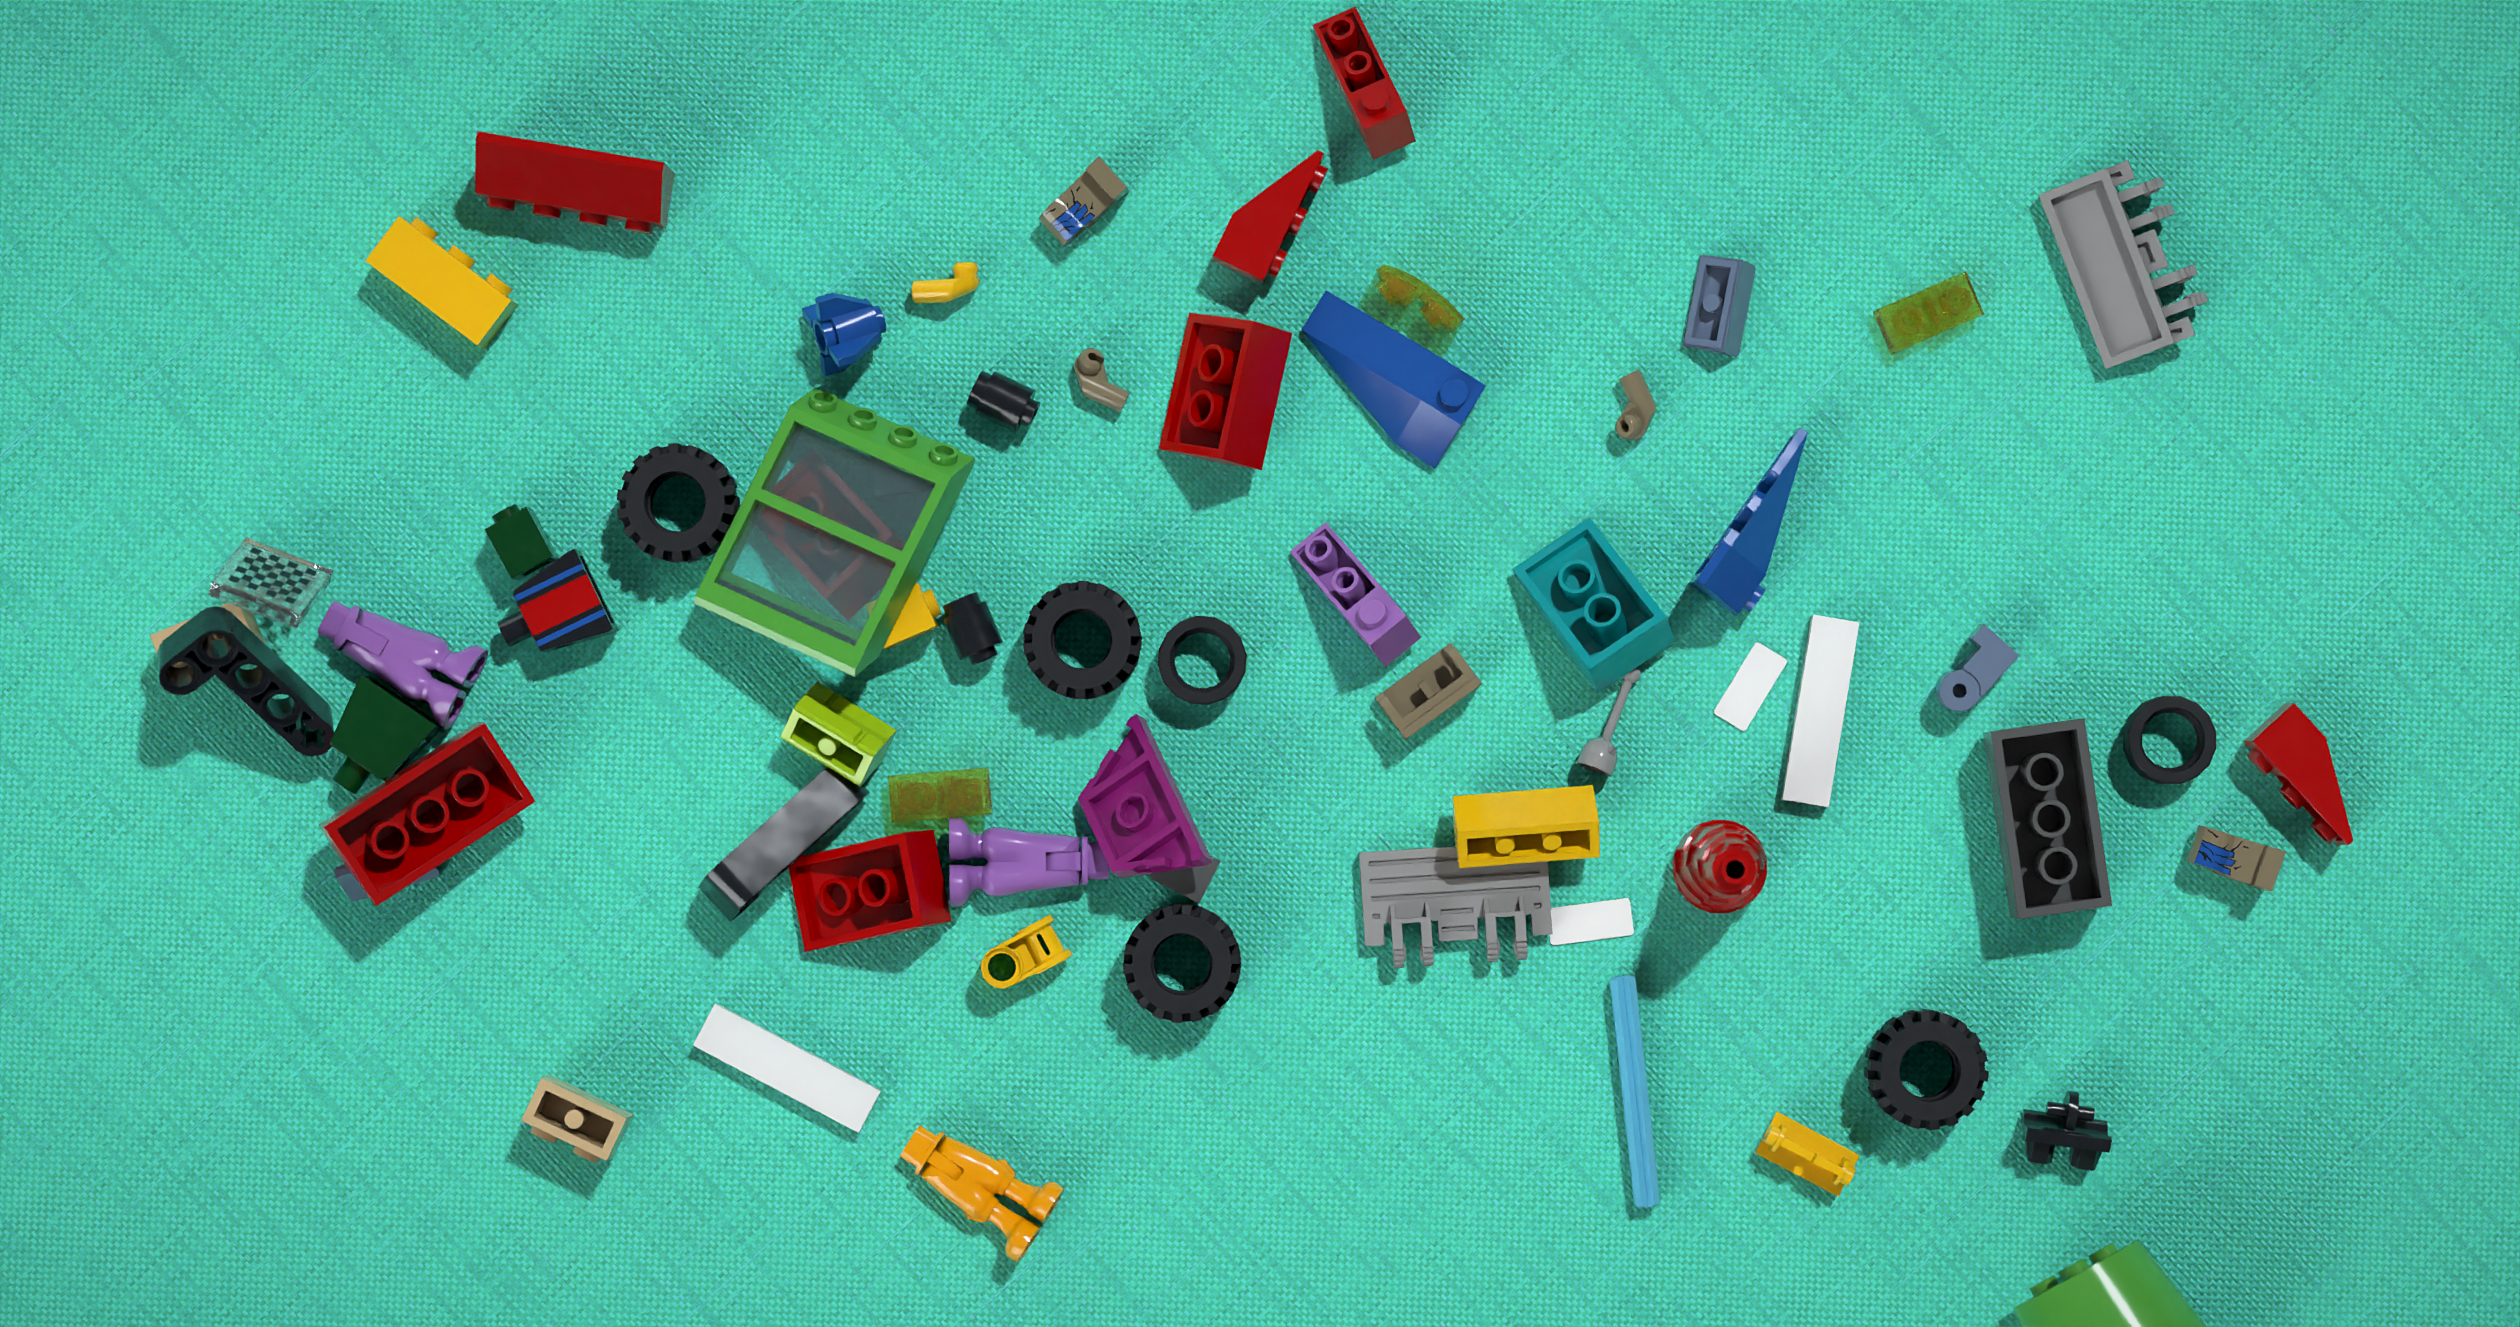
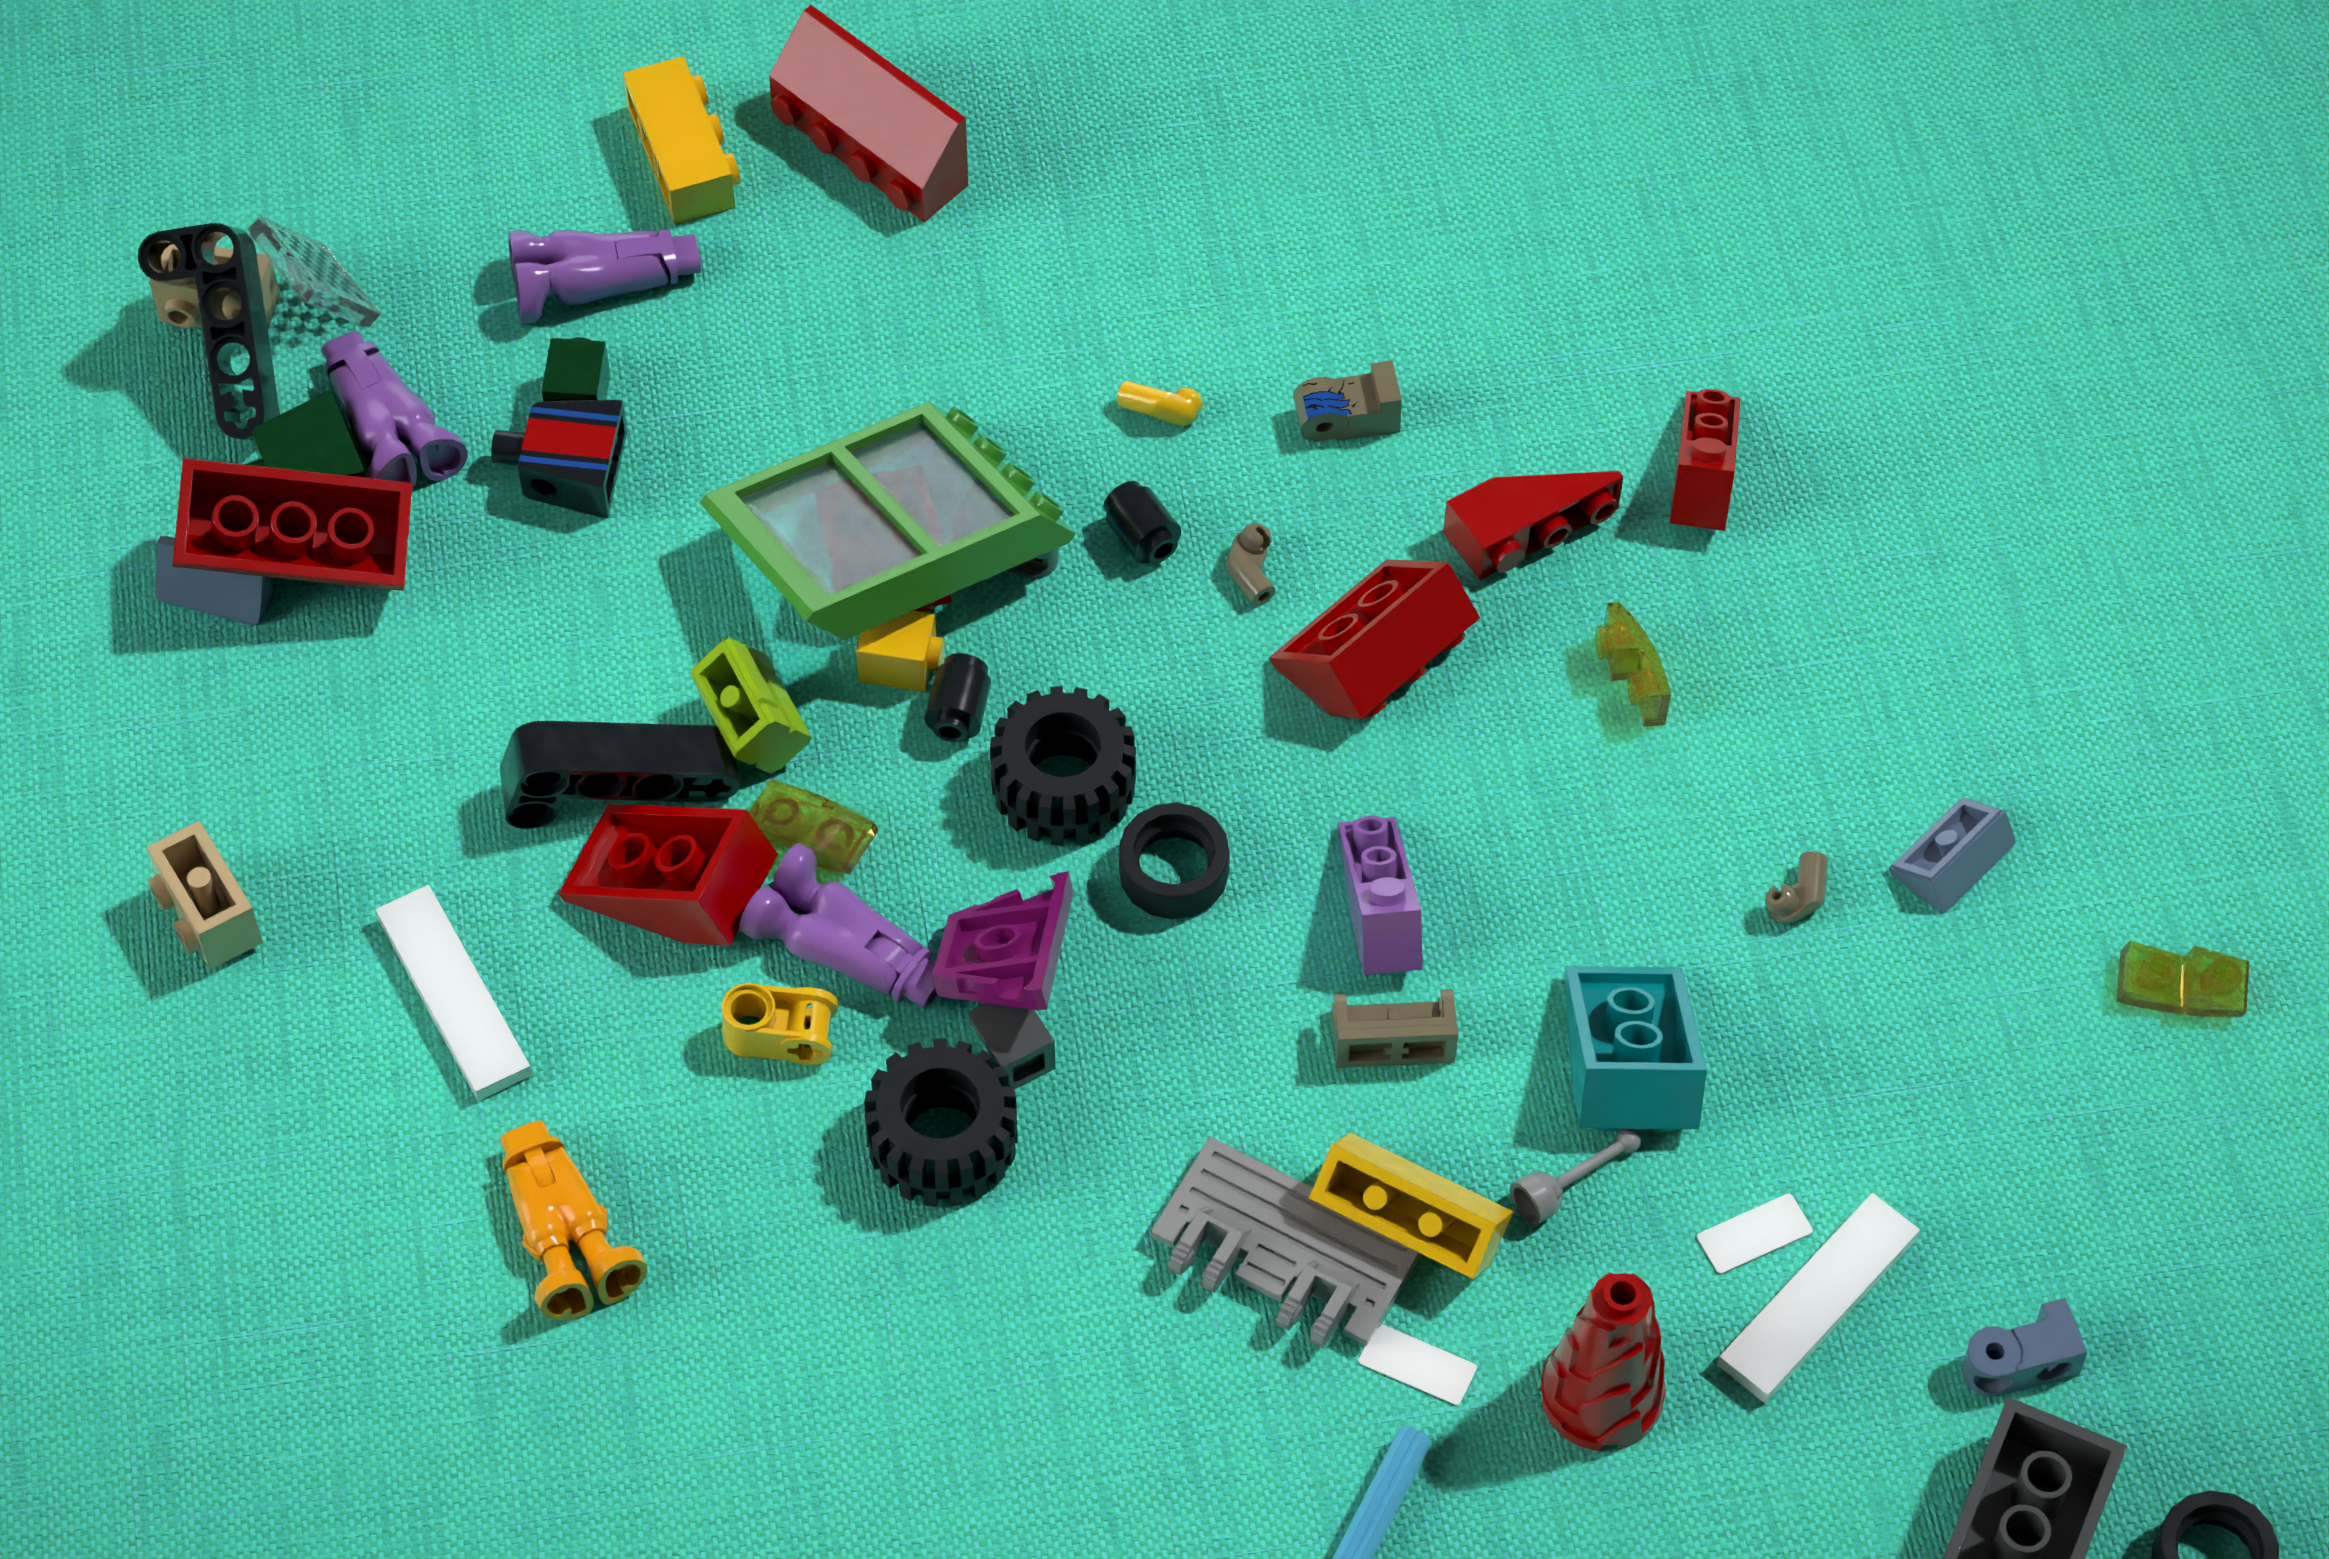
camera: 30 degrees right, 30 degrees down
(462, 432) = (594, 265): none -> medium lavender piece
(638, 494) = (743, 393): black tyre -> none
(843, 329) = (1033, 376): blue brick -> none
(1401, 384) = (1565, 731): blue wedge -> none
(1744, 550) = (1830, 1073): blue wedge -> none

